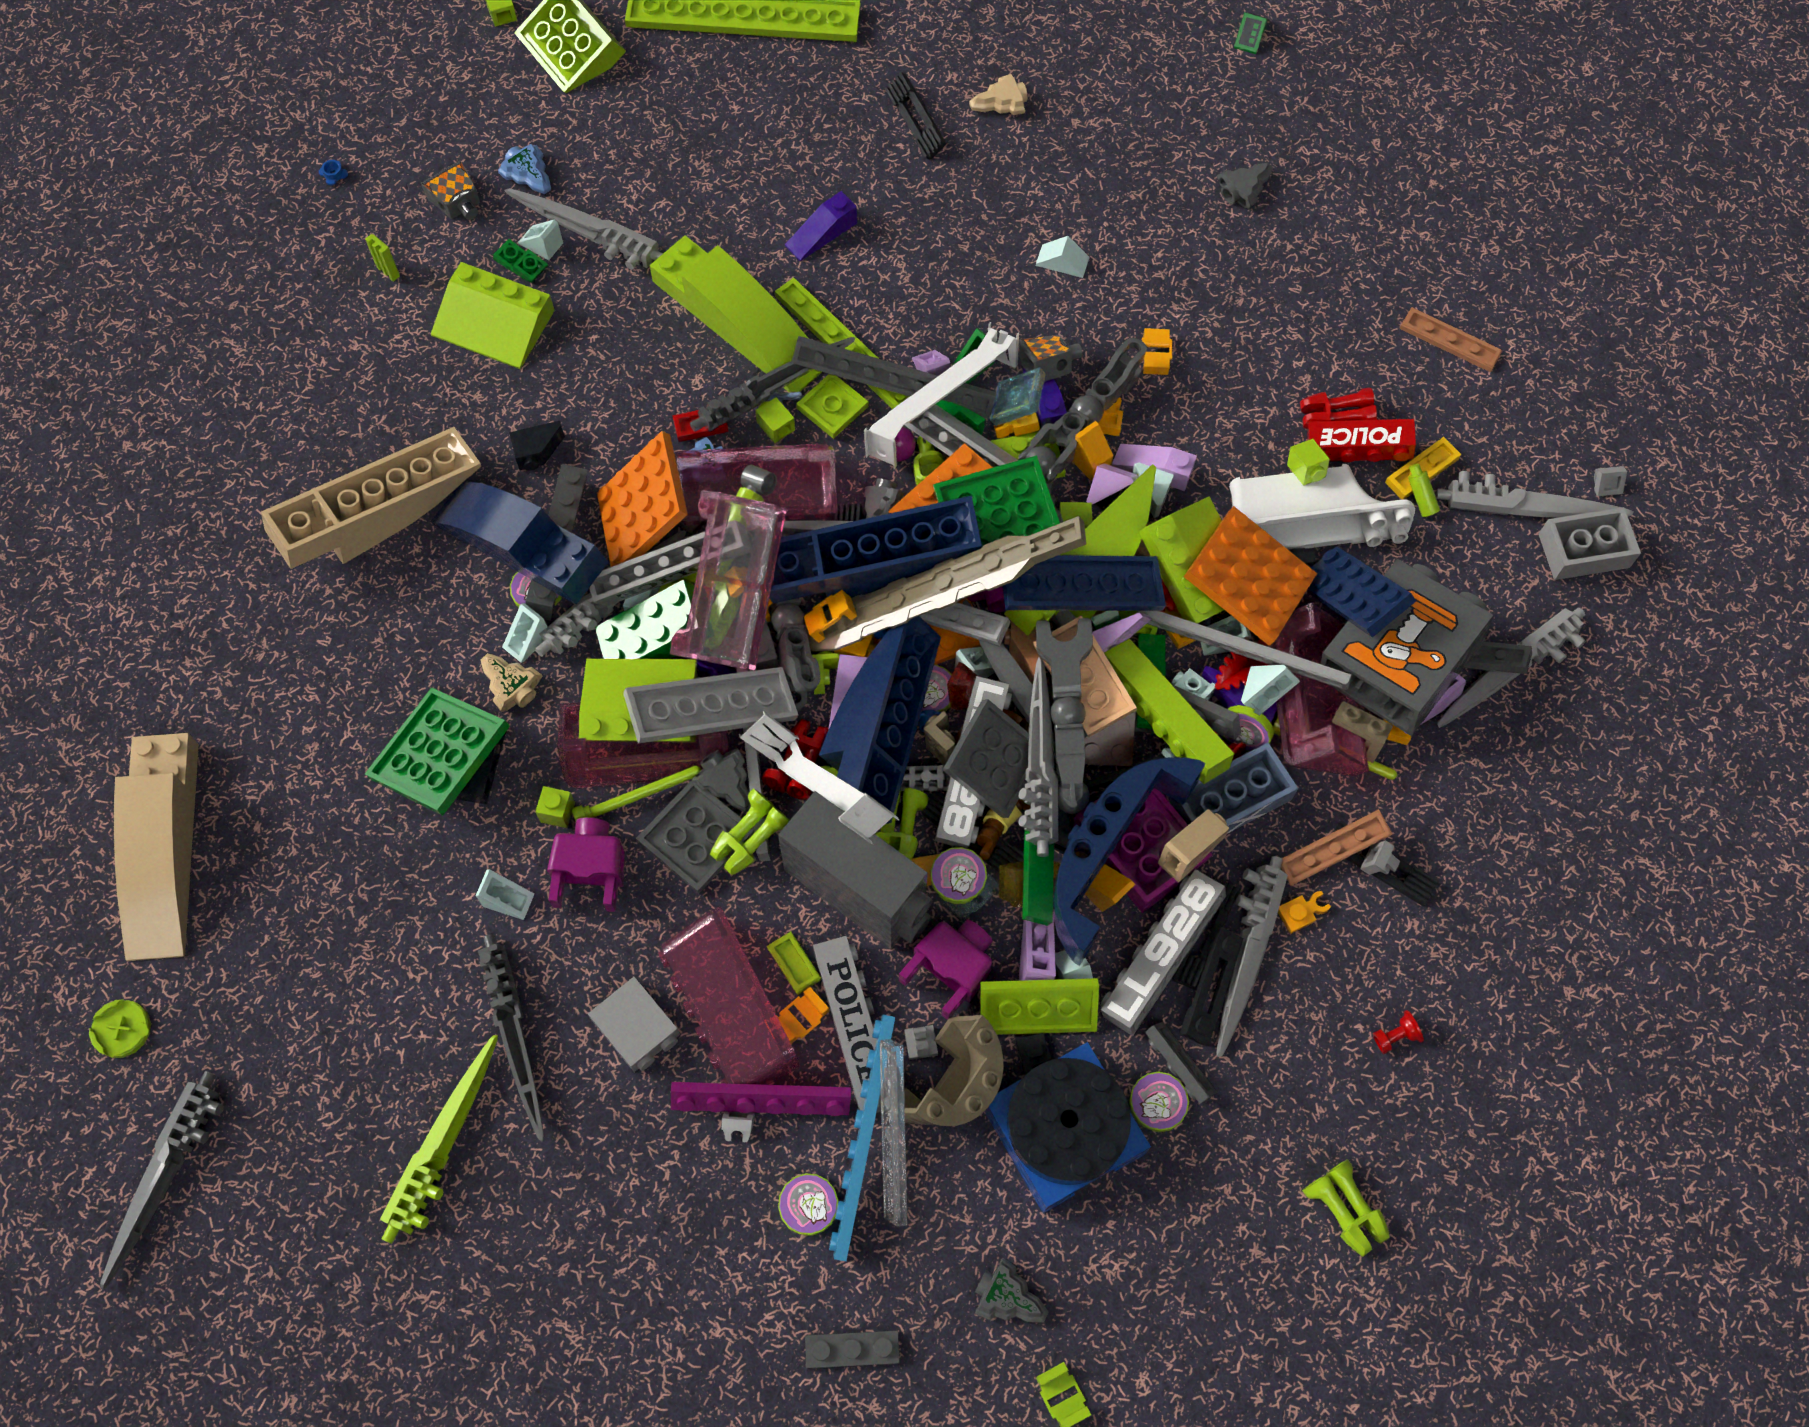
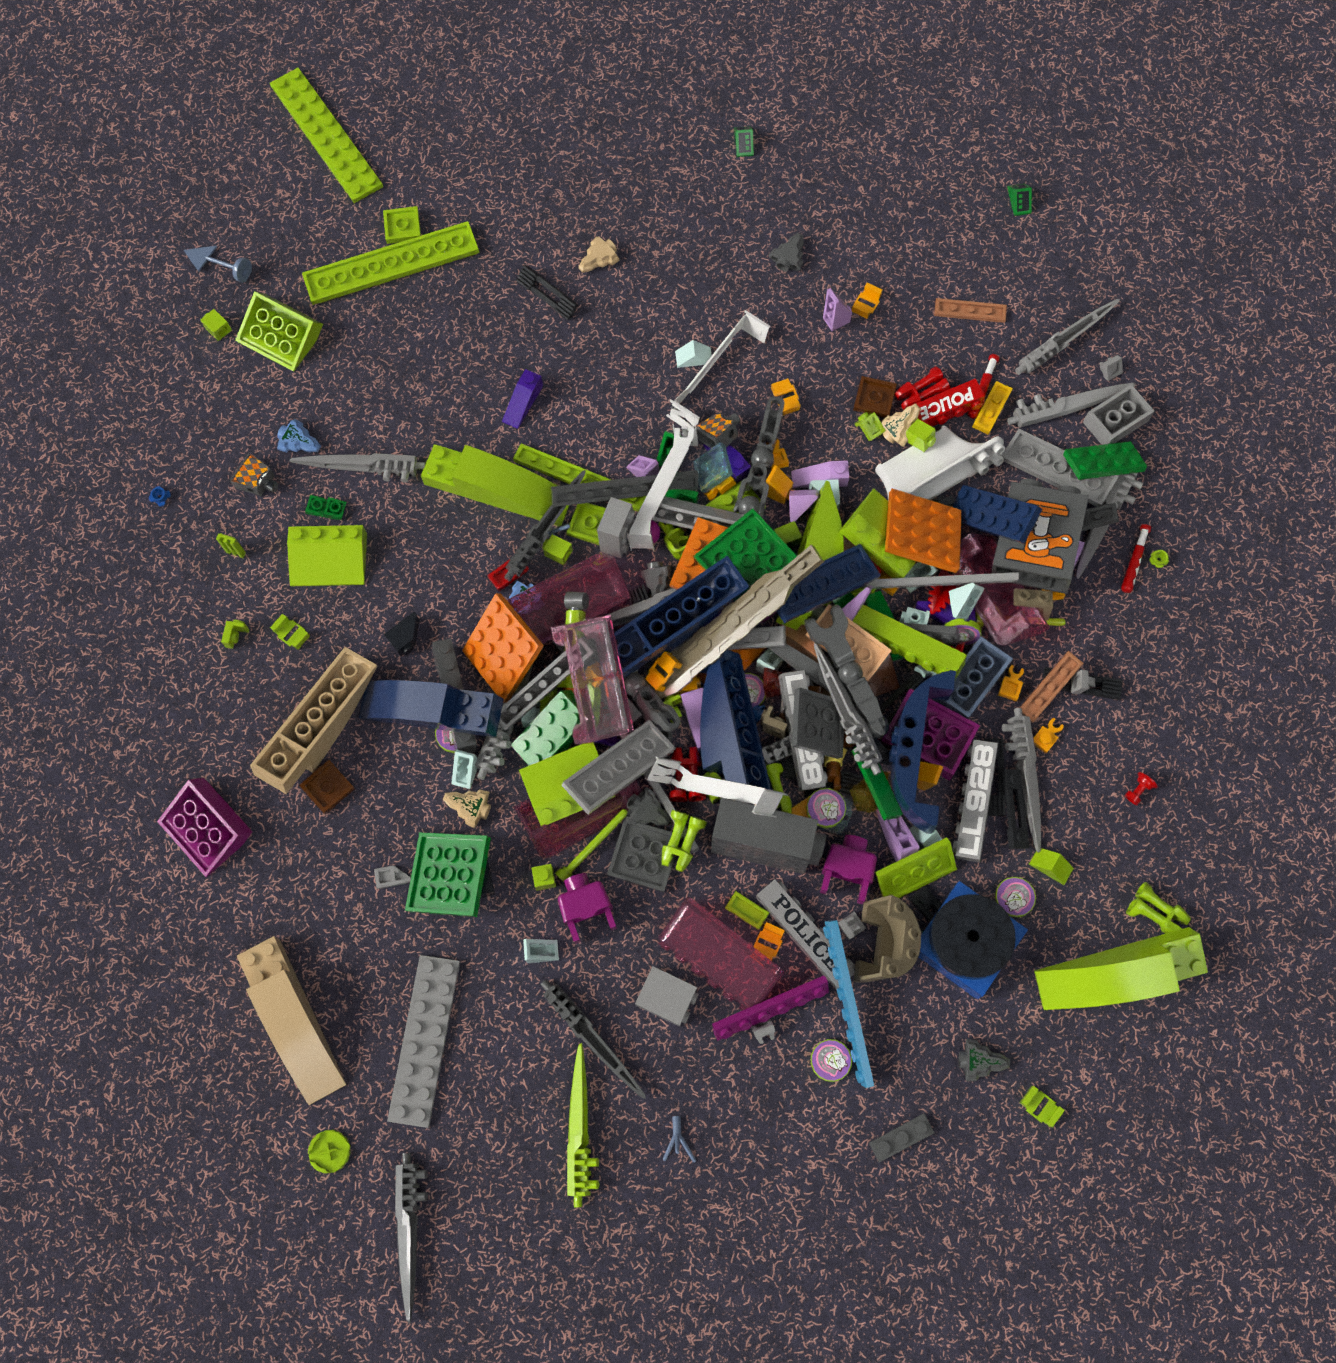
camera: 20 degrees left, 5 degrees up
(180, 569) = (204, 825): none -> magenta slope
(304, 946) = (424, 1041): none -> light grey plate
(331, 358) = (230, 632): none -> lime bracket
(349, 586) = (327, 787): none -> reddish brown plate
(368, 726) = (390, 877): none -> light grey tile
(397, 378) = (283, 626): none -> lime piece
(543, 239) = (333, 485): light aqua slope -> none
(559, 1208) = (677, 1138): none -> sand blue plant
(851, 413) = (615, 526): none -> light grey brick
(893, 1132) = (868, 992): clear tile -> none
(1149, 243) = (748, 323): none -> white piece
(1180, 1063) = (1018, 867): dark grey plate -> none
(1193, 844) = (967, 725): tan slope -> none
(1230, 1082) = (1052, 865): none -> lime slope
(1249, 427) = (870, 425): none -> lime bracket
(1259, 1264) = (1123, 973): none -> lime slope
(1270, 271) = (836, 311): none -> lavender slope
(1272, 395) = (874, 396): none -> reddish brown plate
(1282, 826) = (1011, 686): none -> light orange plate
(1283, 437) = (898, 423): none -> tan rock
(1328, 271) = (871, 294): none -> light orange piece
(1423, 491) = (1000, 424): lime cylinder -> none
(1428, 434) = (985, 381): none -> red piece
(1474, 569) = (1050, 465): none -> light grey plate
(1529, 736) = (1133, 567): none -> red piece
(1543, 589) = (1104, 460): none -> green plate
(1553, 420) = (1060, 340): none -> light grey piece
(1569, 743) = (1163, 558): none -> lime plate
(1582, 230) = (1020, 199): none -> green slope

